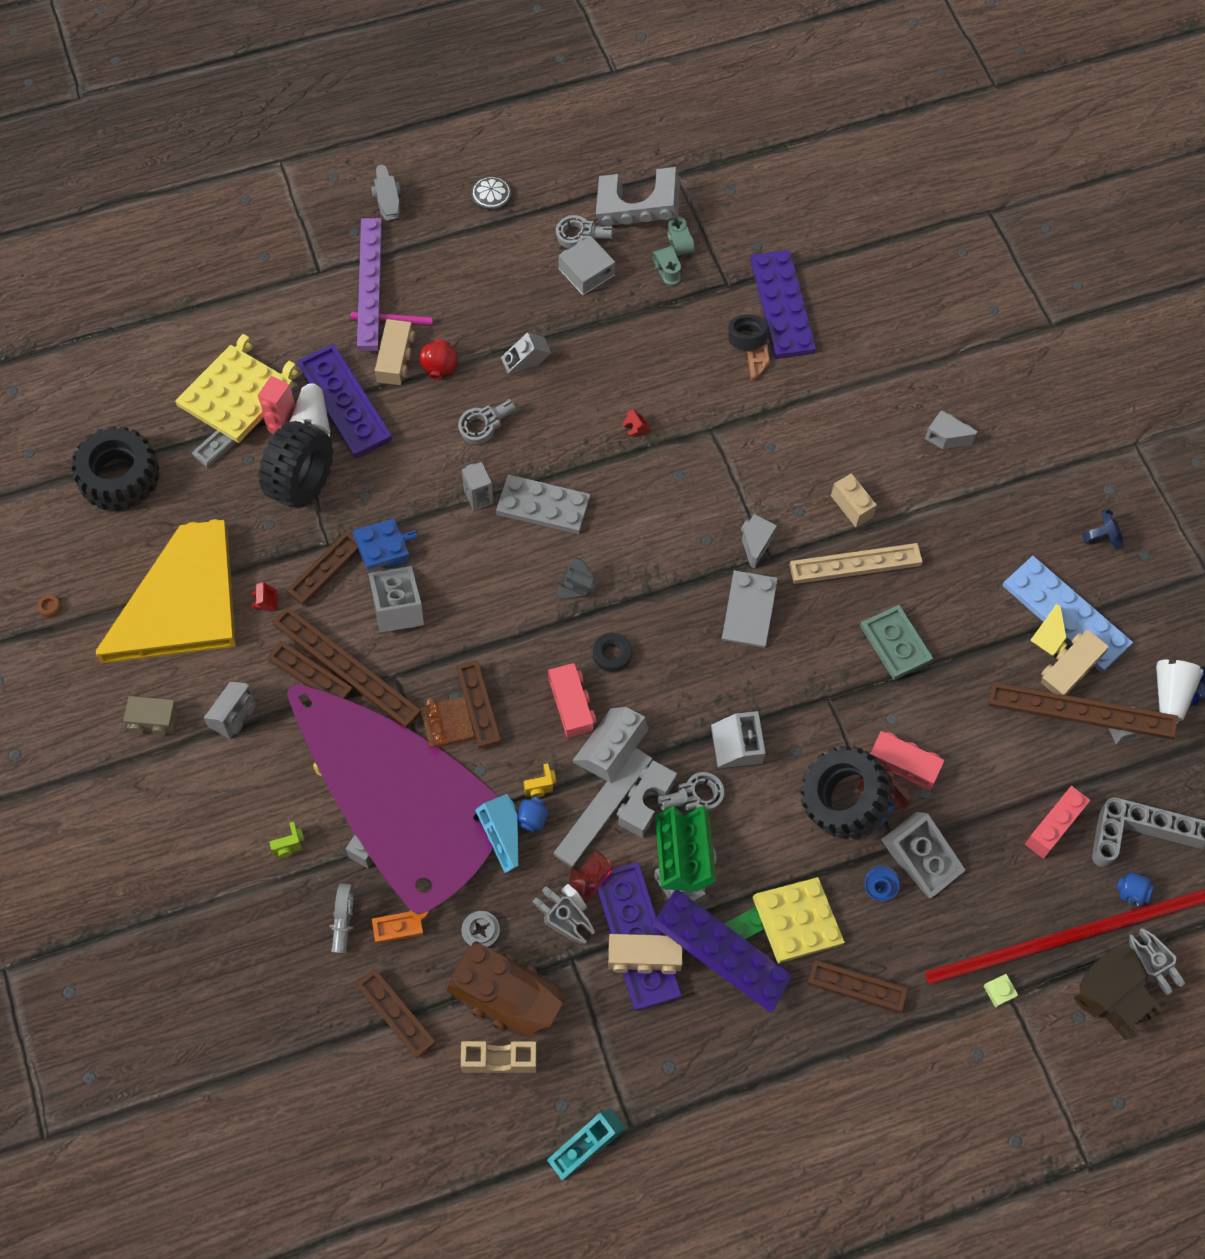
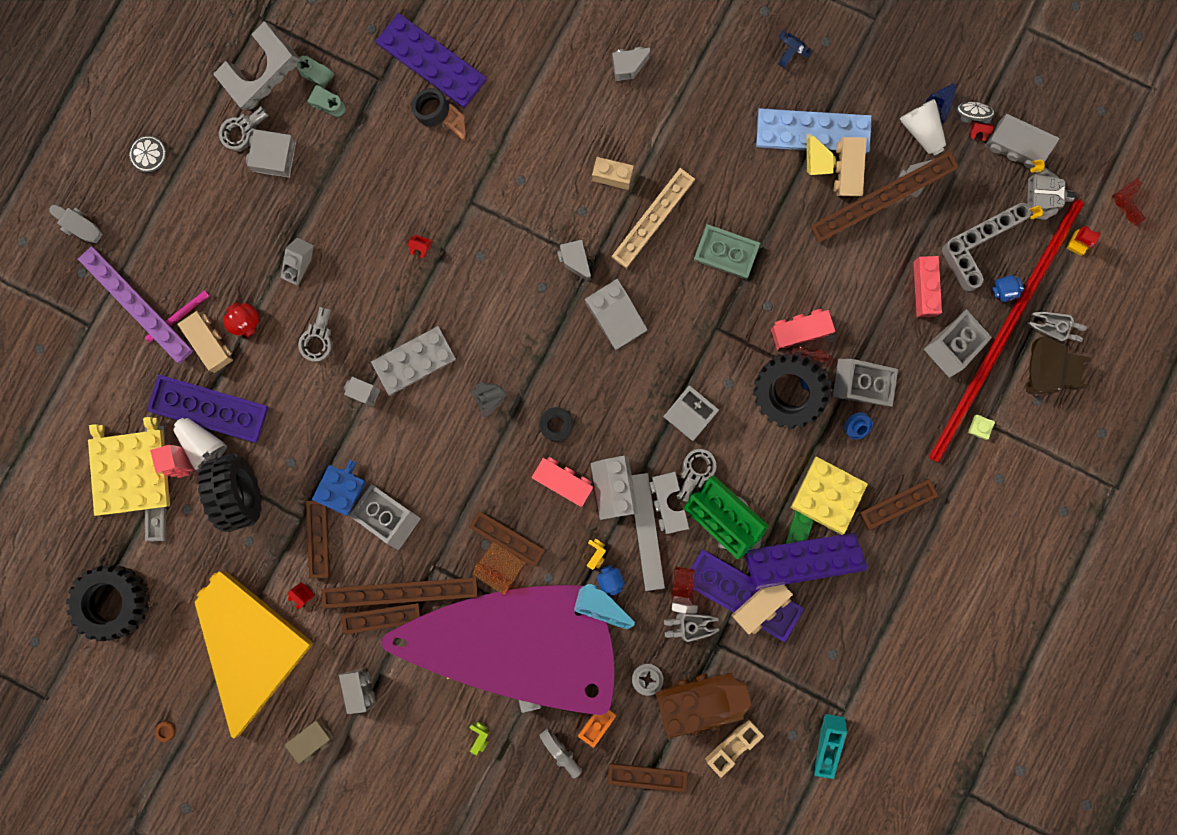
camera: 35 degrees left, 20 degrees up
(1043, 895) = (958, 344): none -> light grey slope

